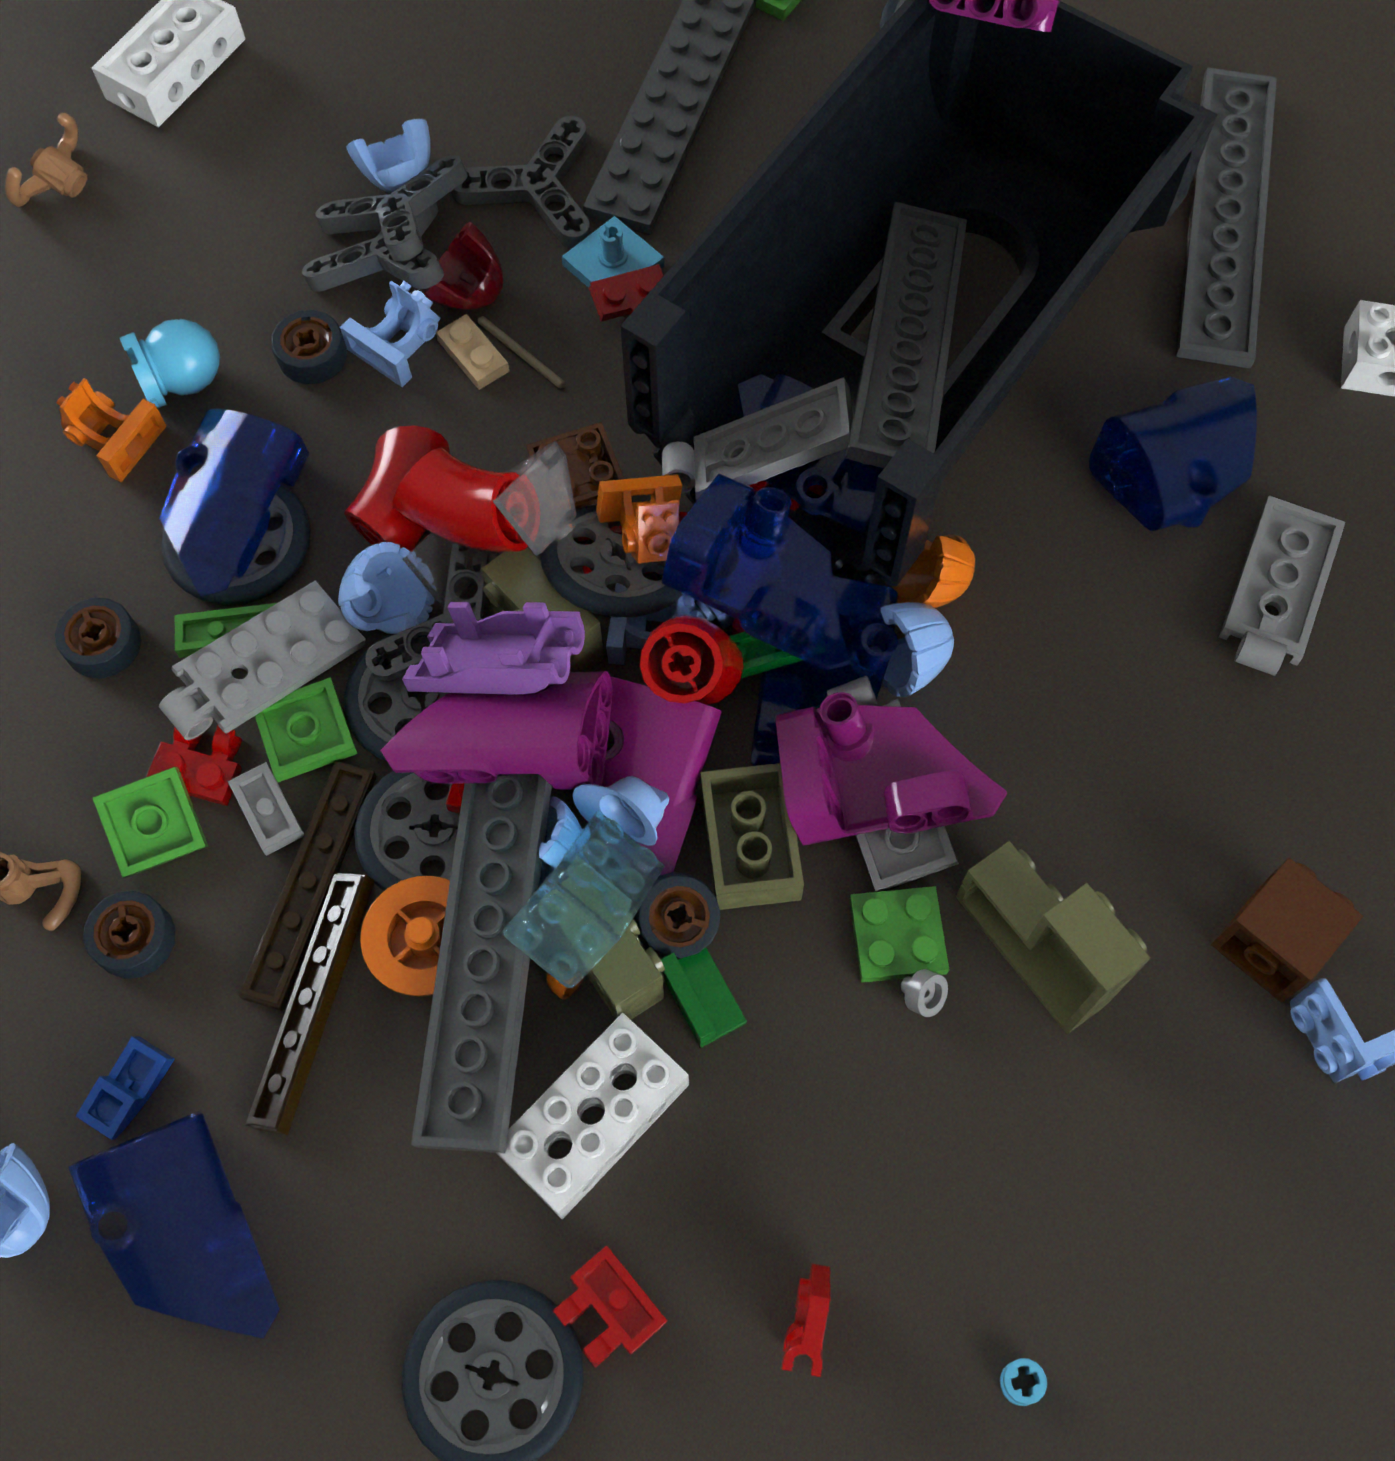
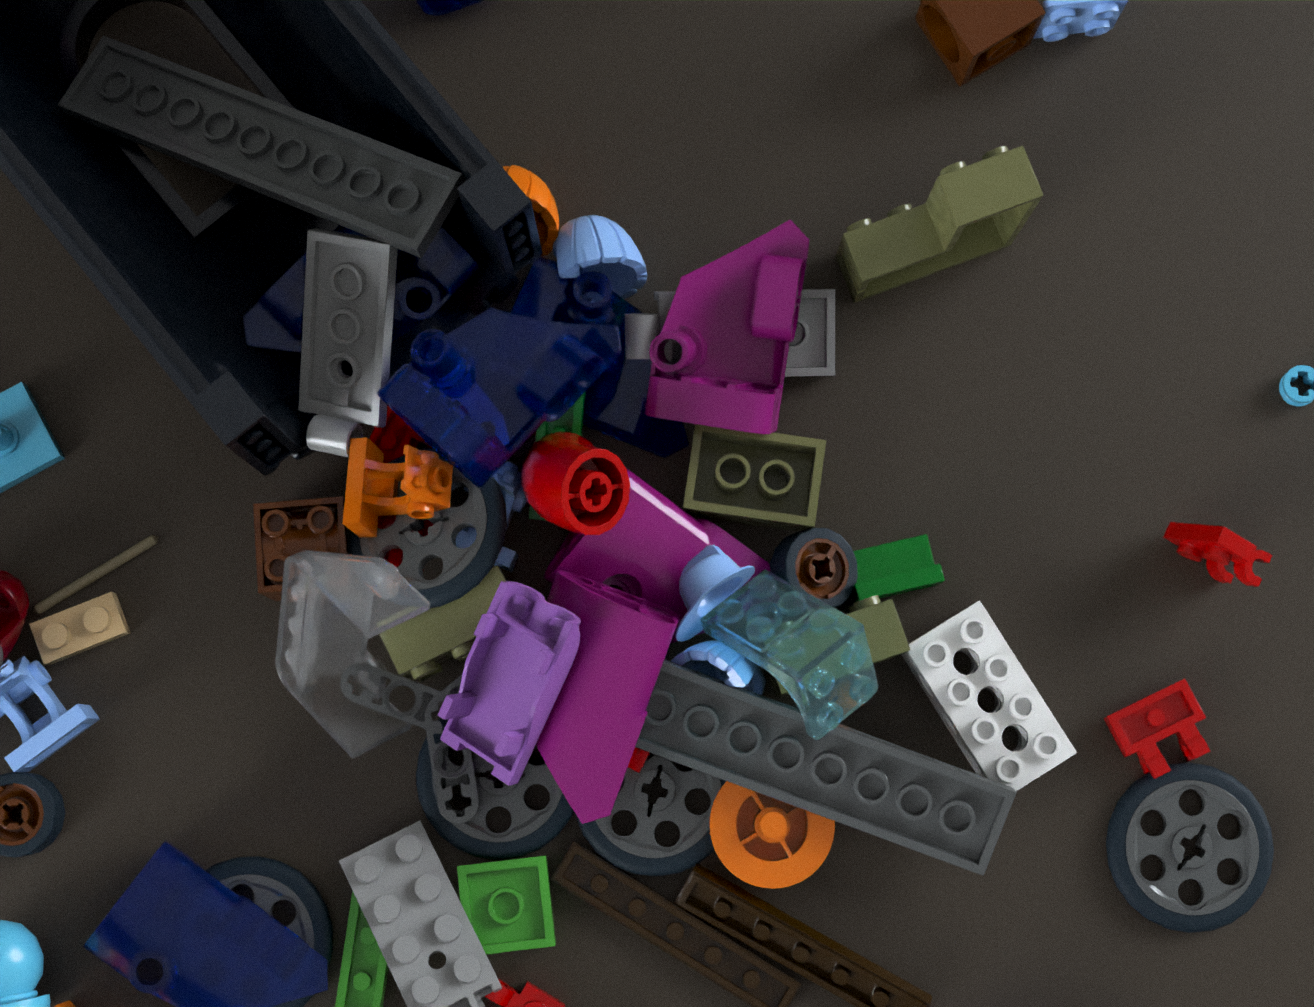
camera: 75 degrees left, 15 degrees up
(266, 808) = (585, 961): light grey plate -> none
(373, 508) = (256, 743): red brick -> none
(383, 591) = (378, 787): light blue hair -> none
(458, 502) = (325, 674): red brick -> none
(624, 292) = (65, 431): red plate -> none
(898, 933) = (879, 367): bright green plate -> none
(925, 992) = (945, 361): light grey tile -> none

